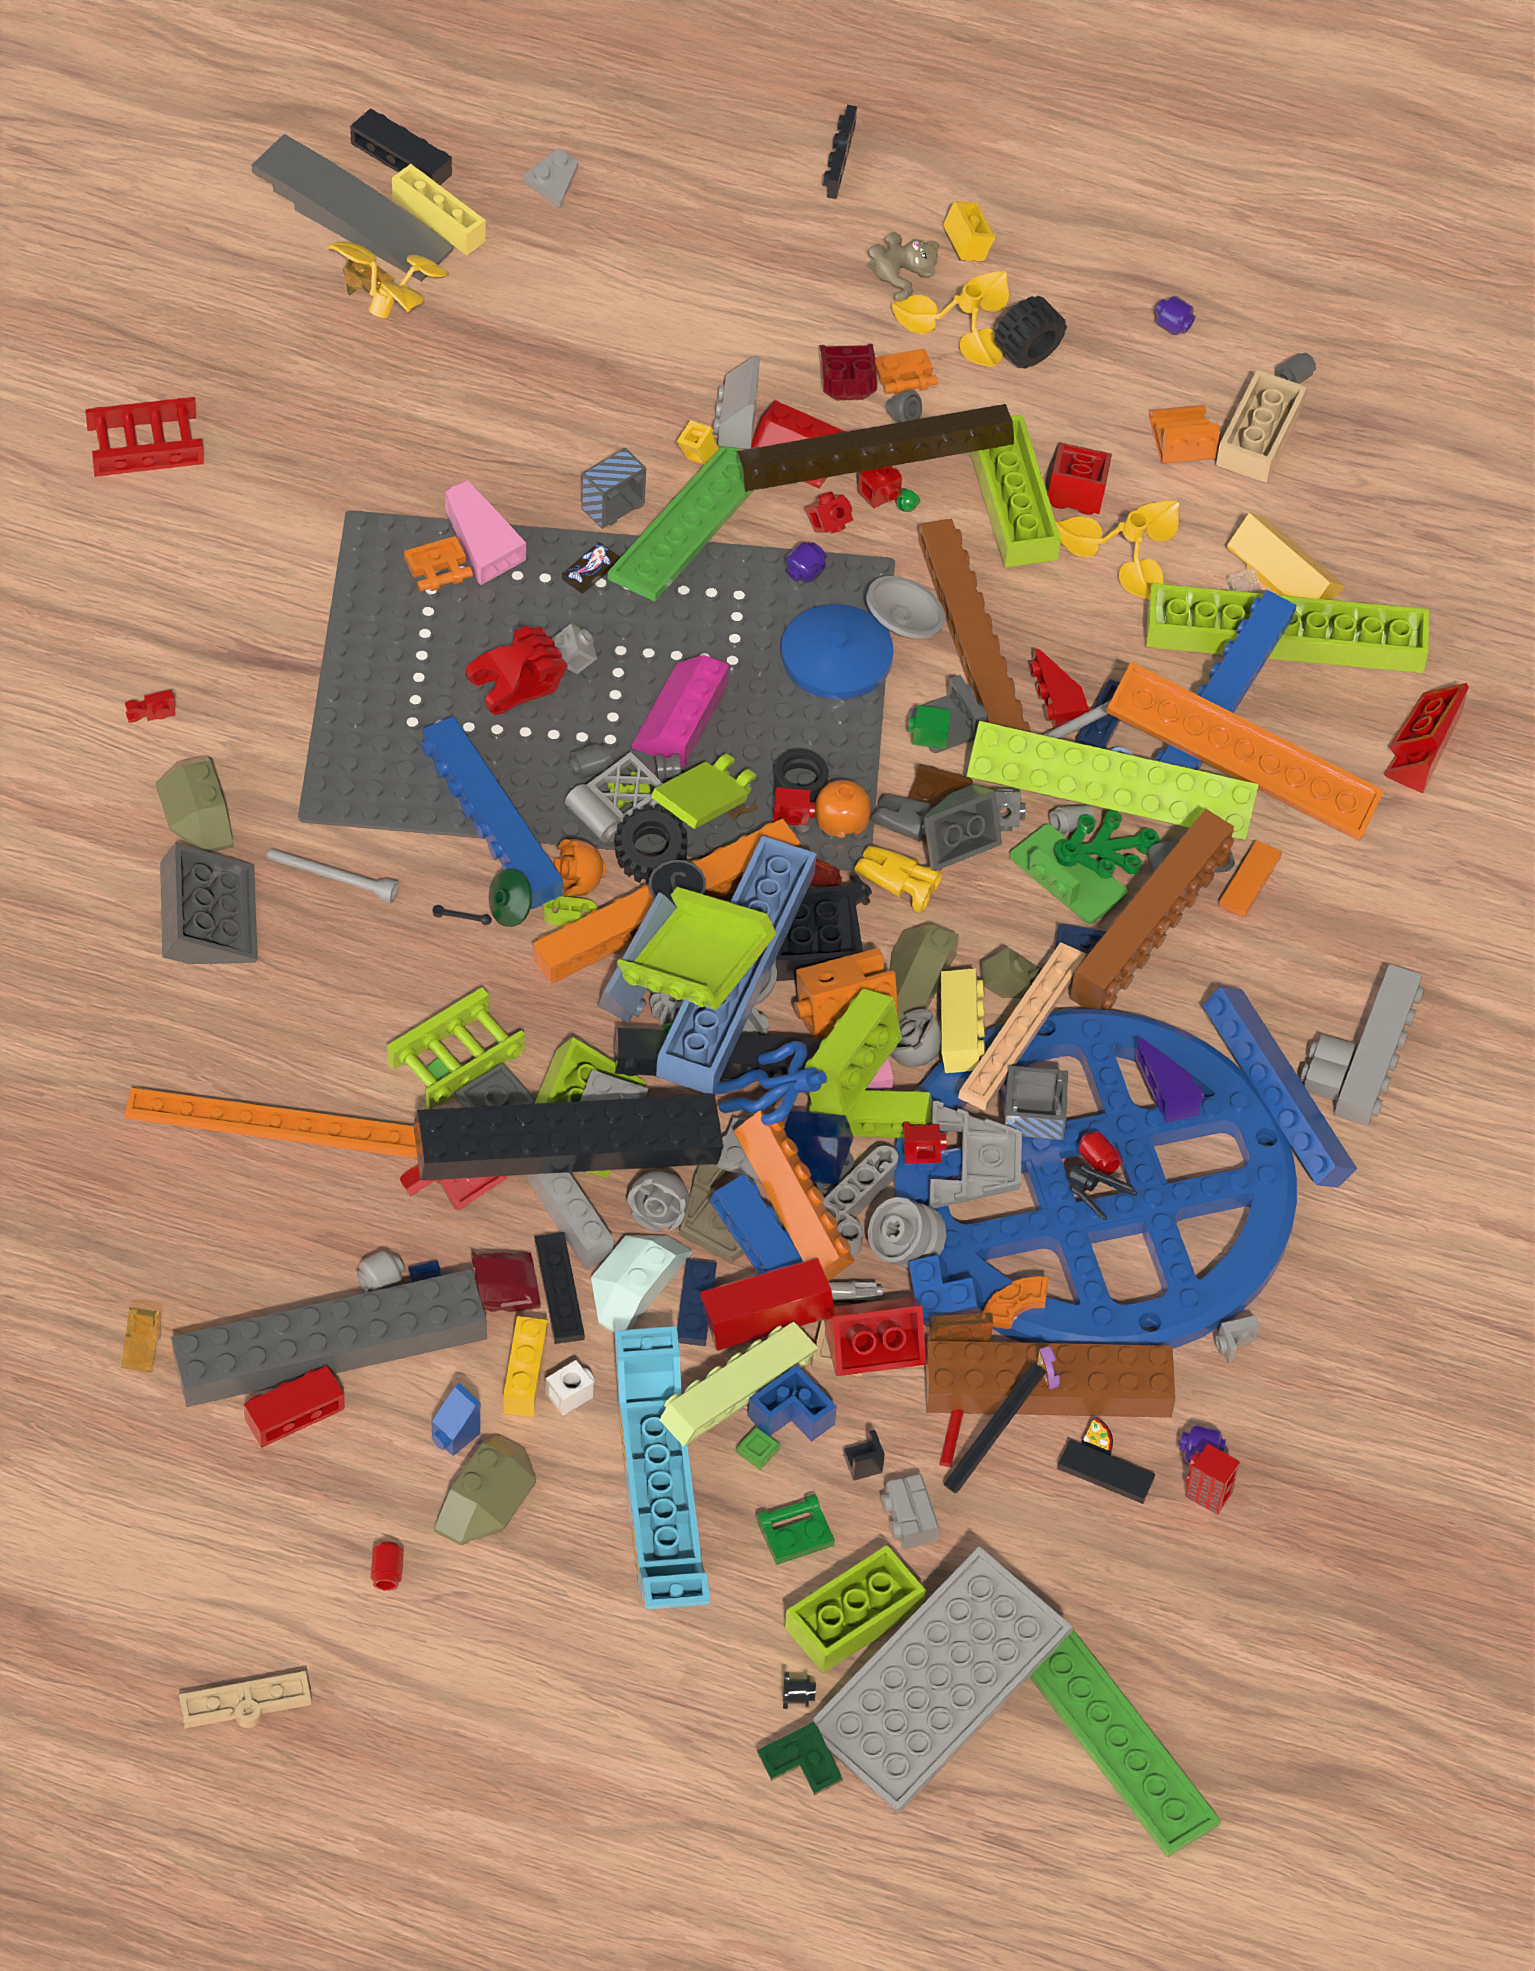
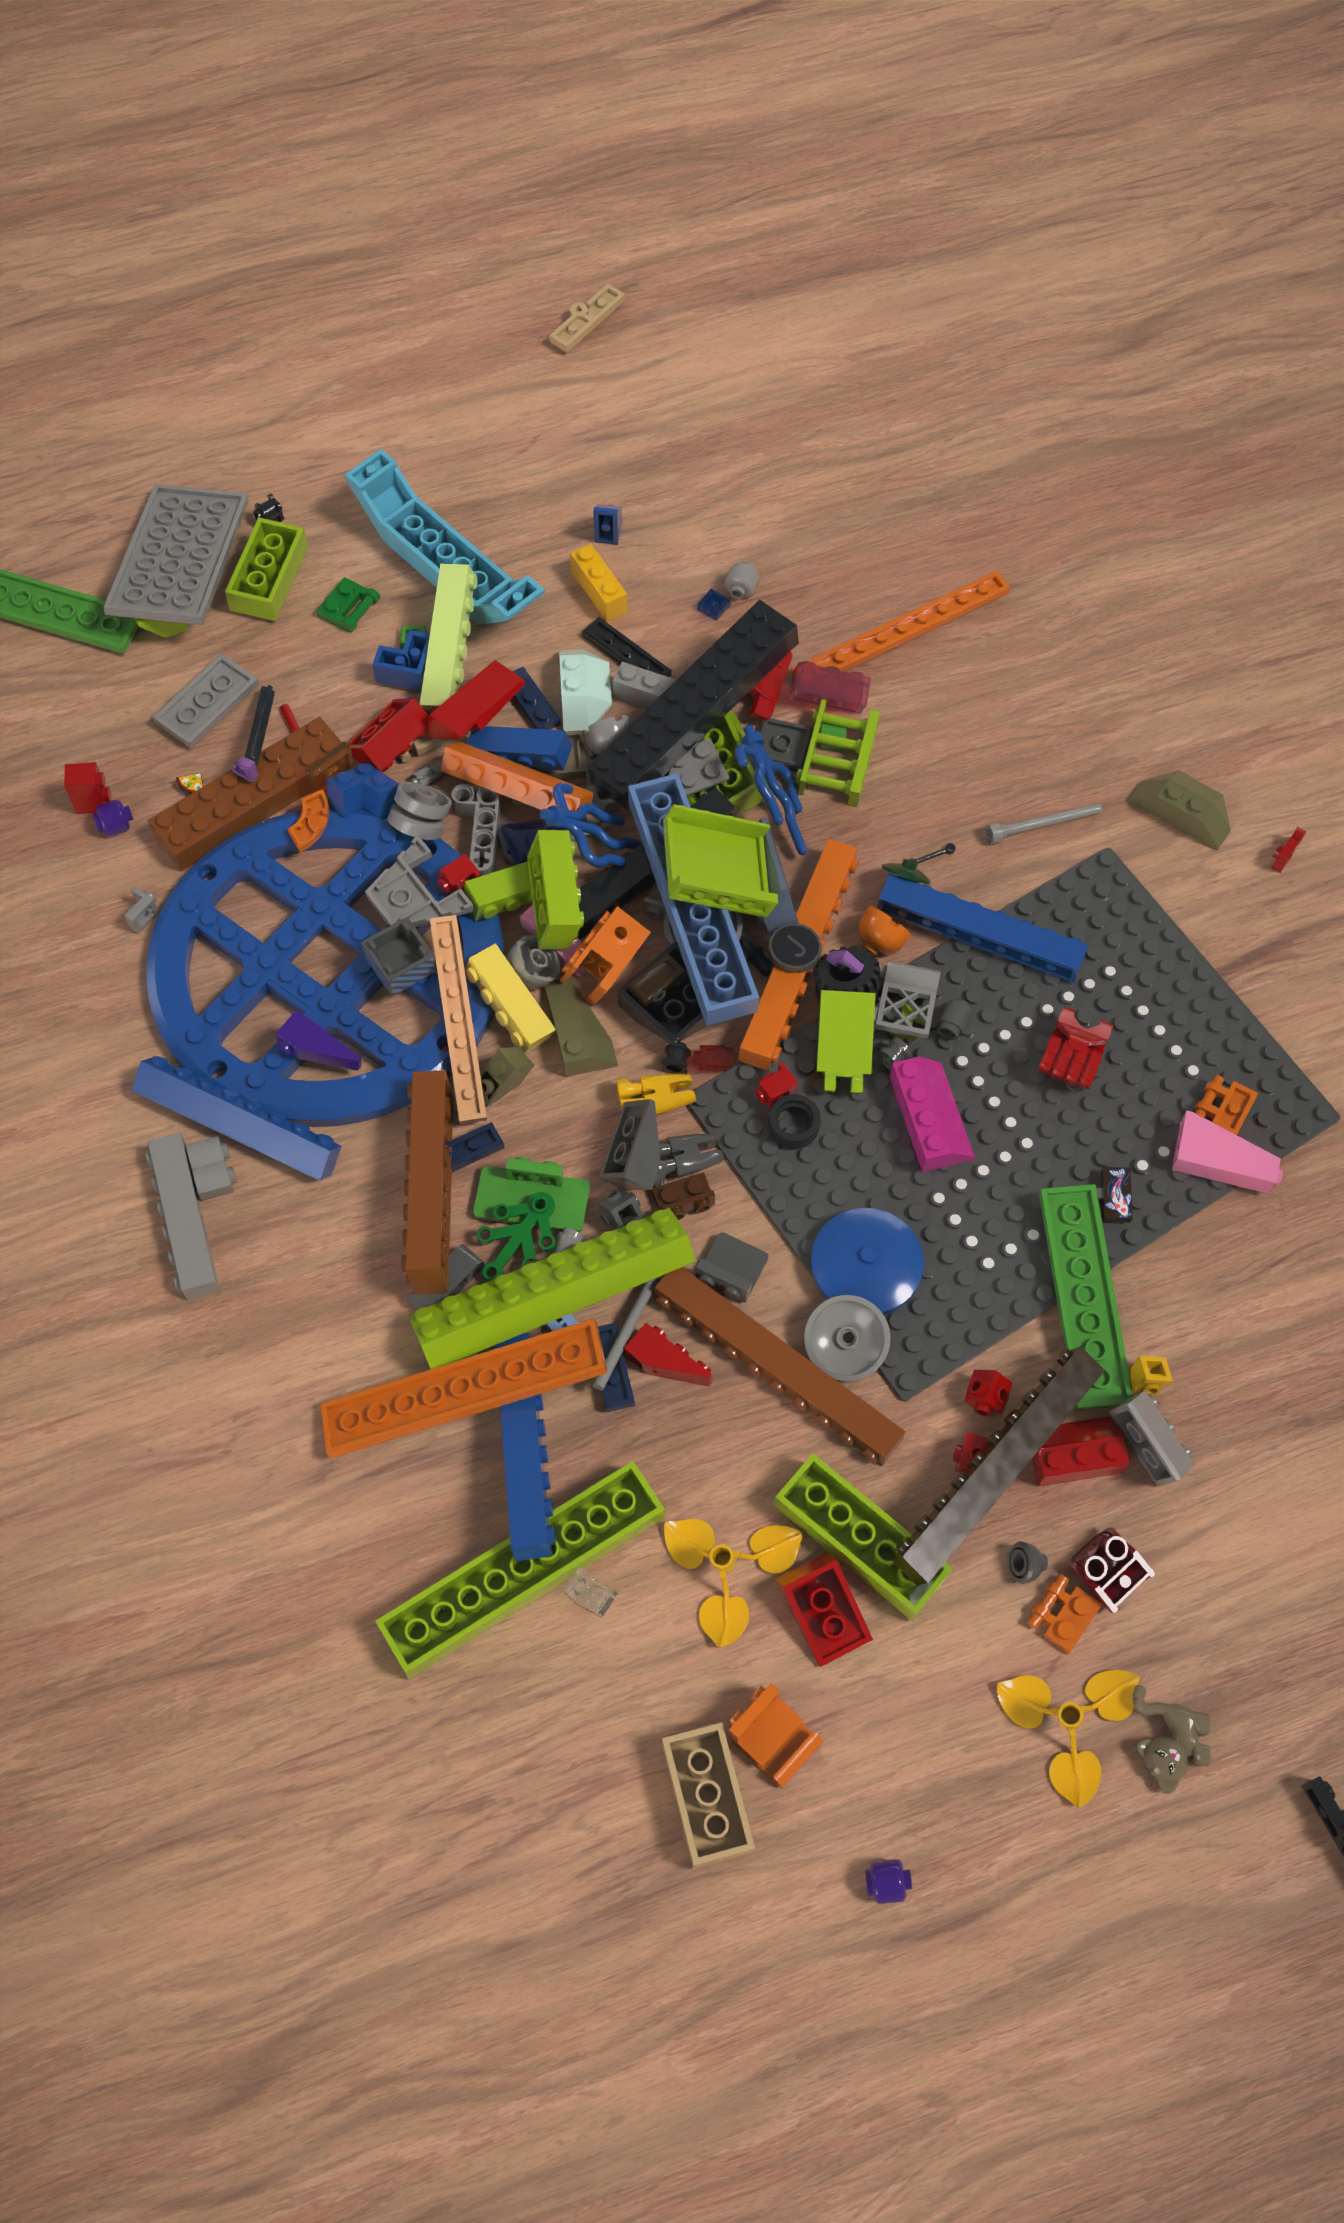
camera: 145 degrees right, 10 degrees up
(141, 1339) = (842, 450): clear yellow slope -> none
(207, 908) = (1093, 735): dark grey slope -> none
(293, 1406) = (716, 475): red brick -> none
(333, 1334) = (730, 522): dark grey brick -> none
(387, 1566) = (574, 427): red brick -> none
(401, 1094) = (839, 688): none -> clear pink brick
(486, 1492) = (555, 509): olive wedge -> none
(506, 1281) = (664, 629): dark red slope -> none
(559, 1048) = (765, 770): none -> blue plant
(567, 1398) = (560, 590): white brick -> none
(569, 910) = (859, 905): lime beam -> none
(576, 647) = (1055, 1100): light grey brick -> none
(613, 488) = (1168, 1273): dark grey container -> none
(649, 841) = (846, 959): none -> medium lavender tile
(805, 1750) = (234, 480): dark green plate -> none
(806, 562) = (961, 1320): dark purple head -> none
(823, 936) = (656, 980): none -> dark brown tile
(842, 808) = (741, 1118): orange cylinder -> none
(866, 1458) = (335, 669): black panel -> none
(907, 500) = (942, 1466): green hinge -> none
(911, 1512) = (279, 654): light grey brick -> none
(930, 727) = (734, 1237): green brick -> none
(969, 231) = (1149, 1824): yellow brick -> none
(1022, 1514) = (205, 700): none -> light grey plate
(1030, 332) = (989, 1726): black tyre -> none
(1086, 1178) = (321, 928): black plant -> none
(1100, 1153) = (326, 955): red brick -> none
(1106, 1471) = (170, 766): black tile -> none
(1250, 878) = (387, 1302): orange tile -> none
(1280, 561) = (576, 1653): yellow slope -> none
(1297, 368) = (730, 1907): dark grey brick -> none
(1425, 736) = (332, 1552): red slope -> none

